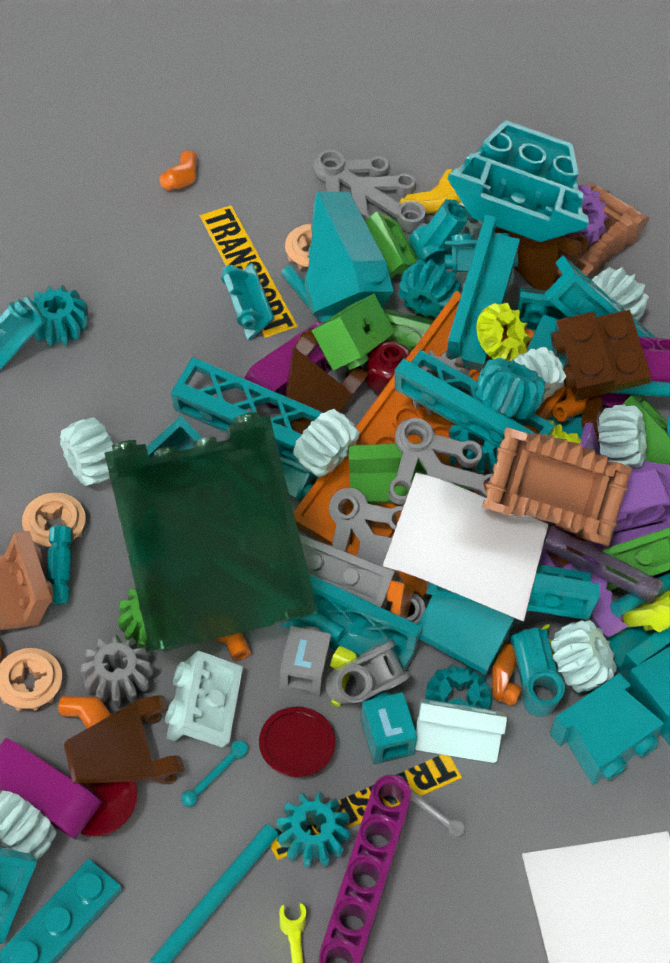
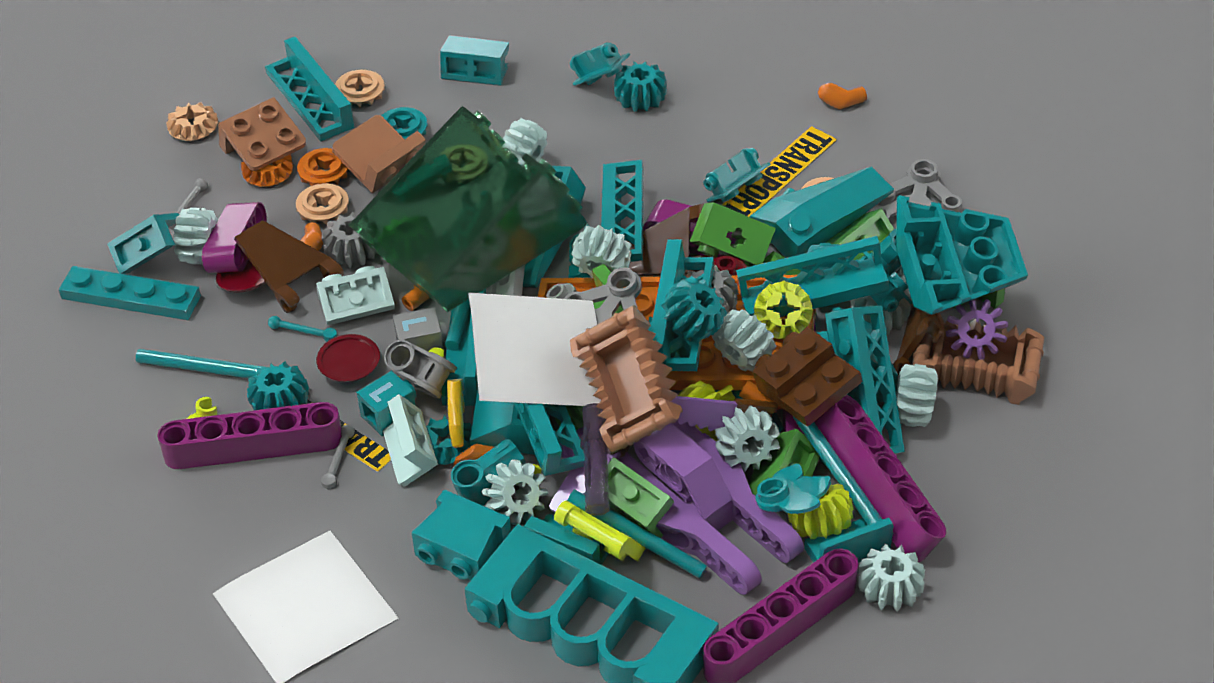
camera: 70 degrees right, 10 degrees down
(433, 658) = (456, 408): none -> yellow piece

